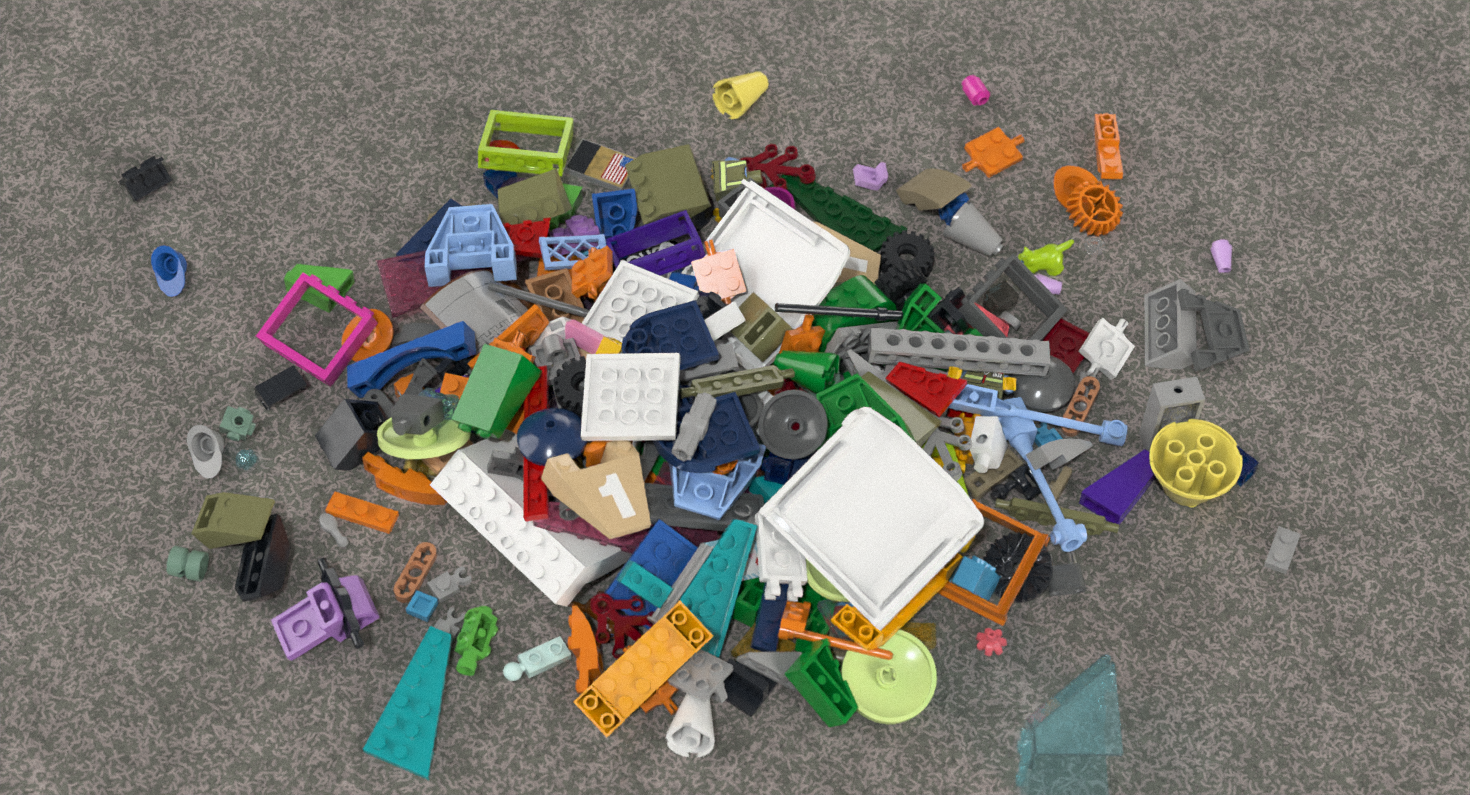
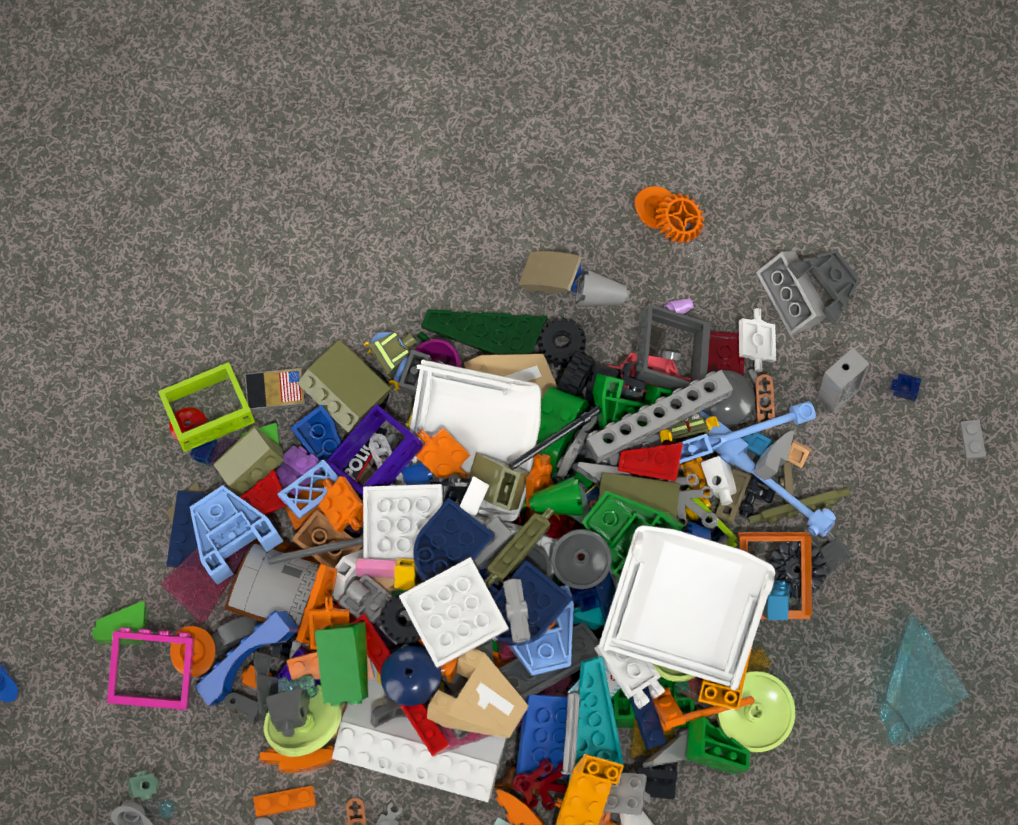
camera: 25 degrees left, 15 degrees up
(279, 387) = (154, 734): black hinge -> none
(351, 433) = (239, 743): black slope -> none
(644, 584) = (546, 750): teal brick -> none
(738, 93) = (345, 263): light yellow cone -> none
(771, 169) = (412, 319): dark red plant -> none
(870, 177) = (491, 283): lavender bracket -> none
(975, 90) = (526, 156): dark pink brick -> none
(991, 641) = (808, 640): coral plant -> none
(993, 152) = (571, 206): orange plate -> none
(1045, 258) = (668, 282): lime animal -> none
(1086, 471) = (798, 454): none -> light nougat slope
(1107, 146) = (657, 154): orange slope -> none
(1119, 489) = (833, 457): dark purple slope -> none
(1195, 461) = (882, 411): light yellow cone -> none
(1222, 252) = (796, 205): lavender cone -> none

